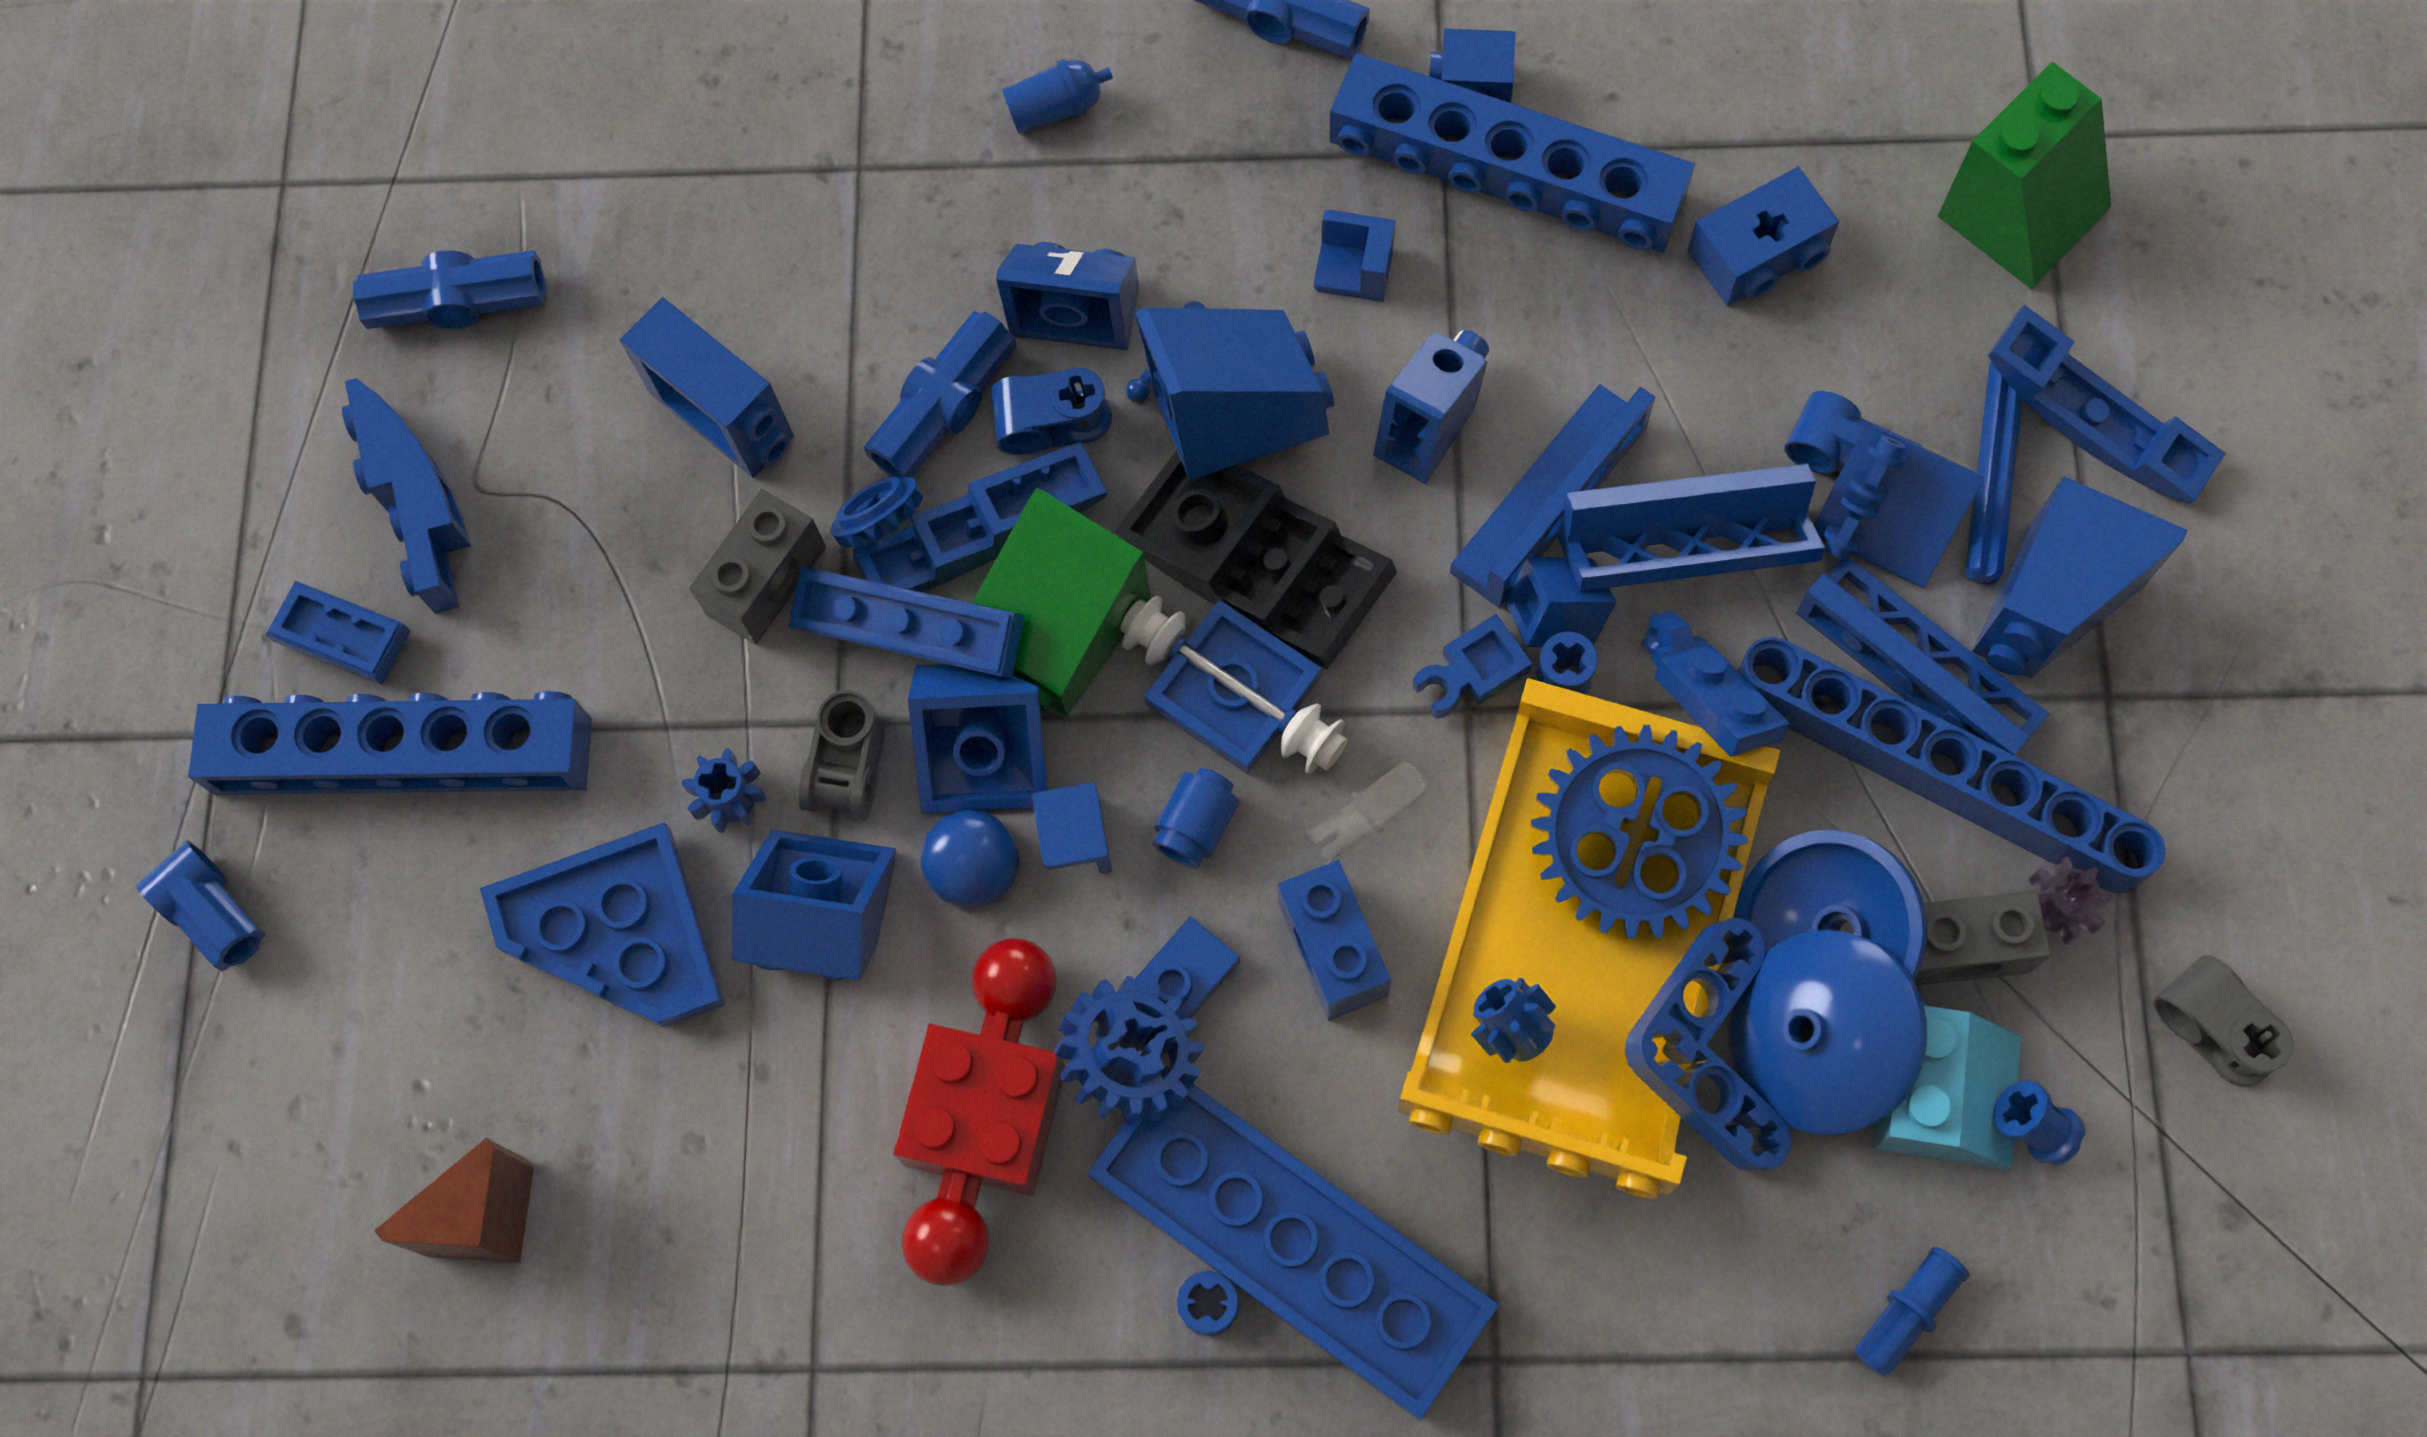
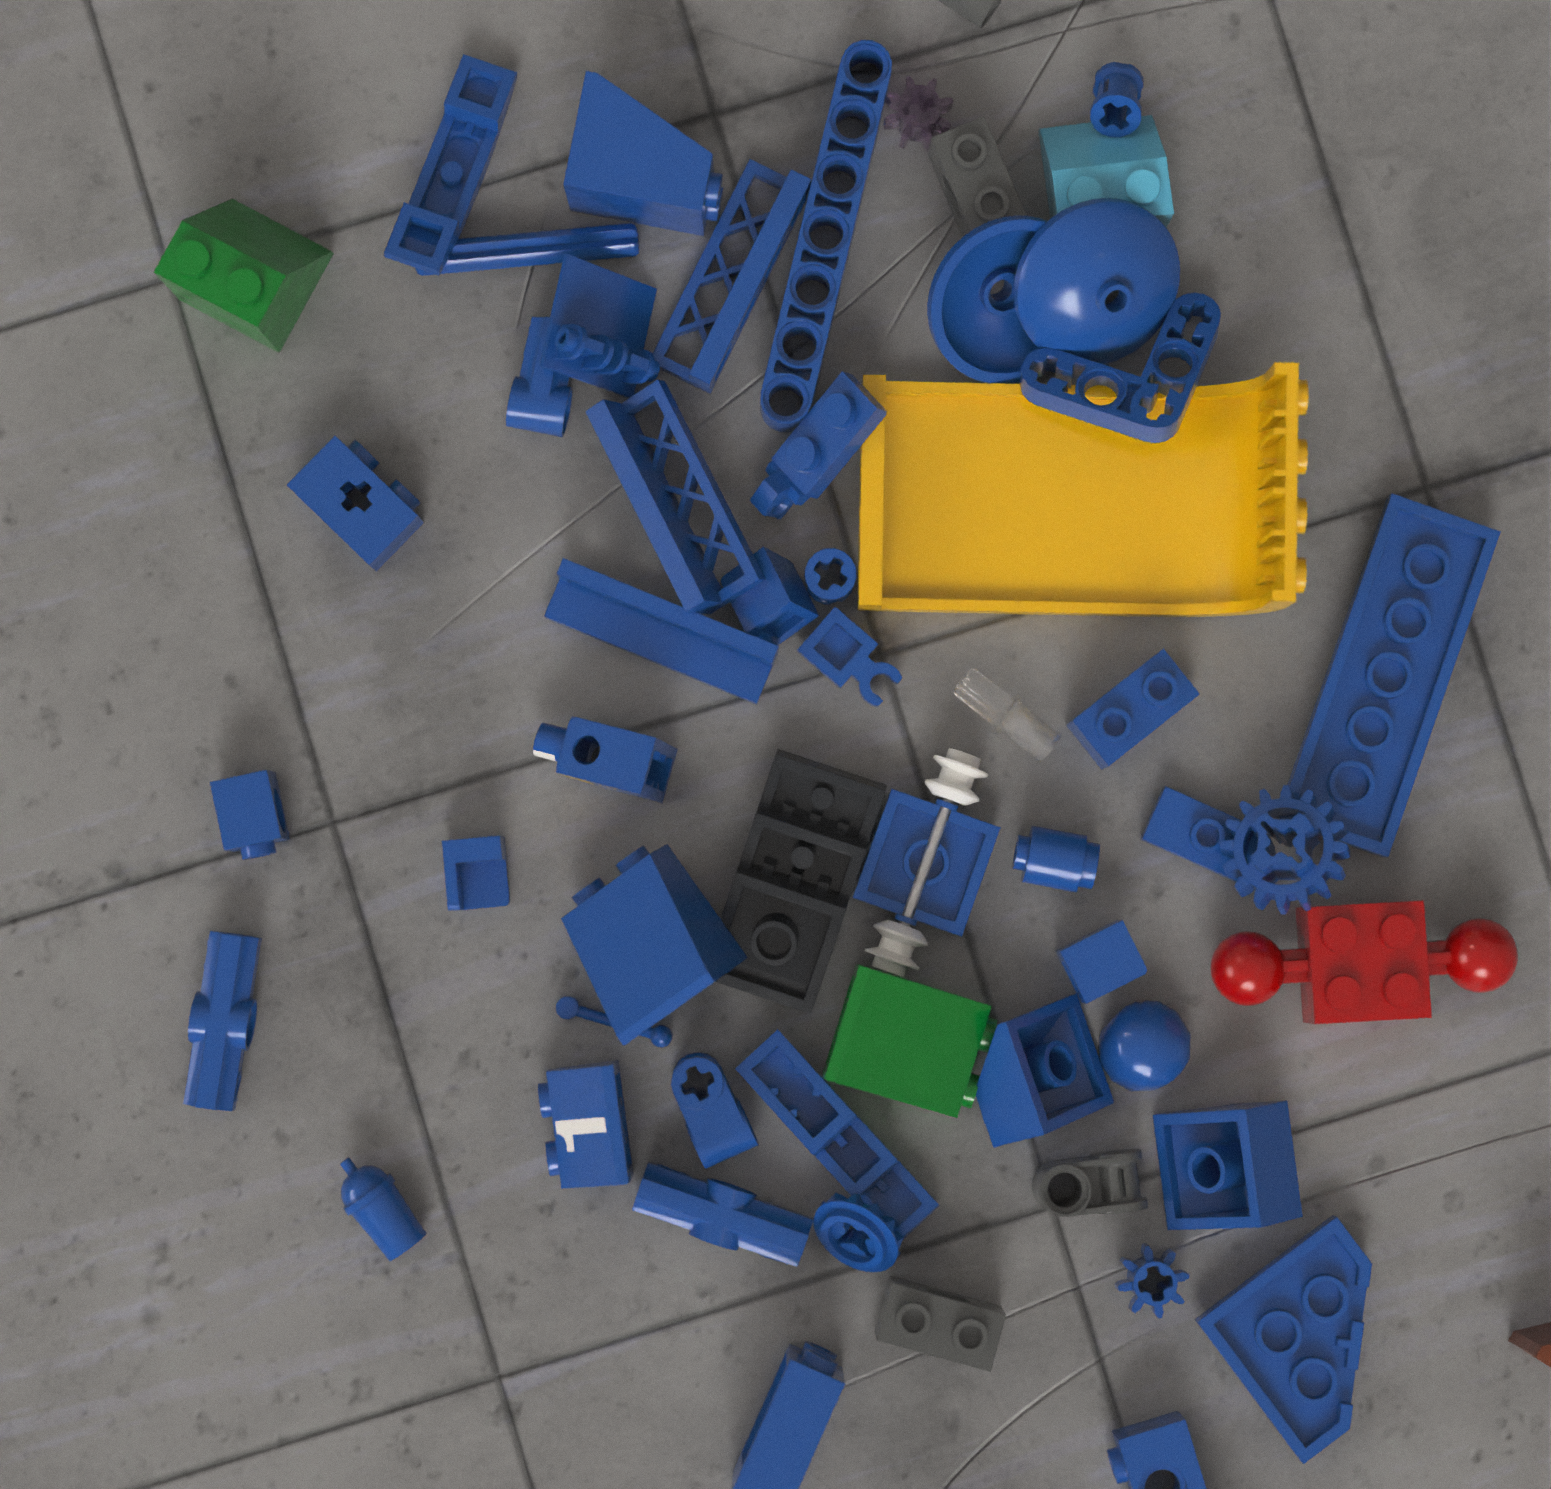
camera: 115 degrees left, 15 degrees up
(907, 621) = (959, 1168): blue tile -> none
(1209, 1282) = (1473, 724): blue bush -> none
(1496, 127) = (328, 611): blue brick -> none
(1513, 1020) = (1163, 539): blue gear -> none
(1695, 852) = (970, 426): blue gear -> none
(1911, 1311) = (1294, 170): blue axle -> none

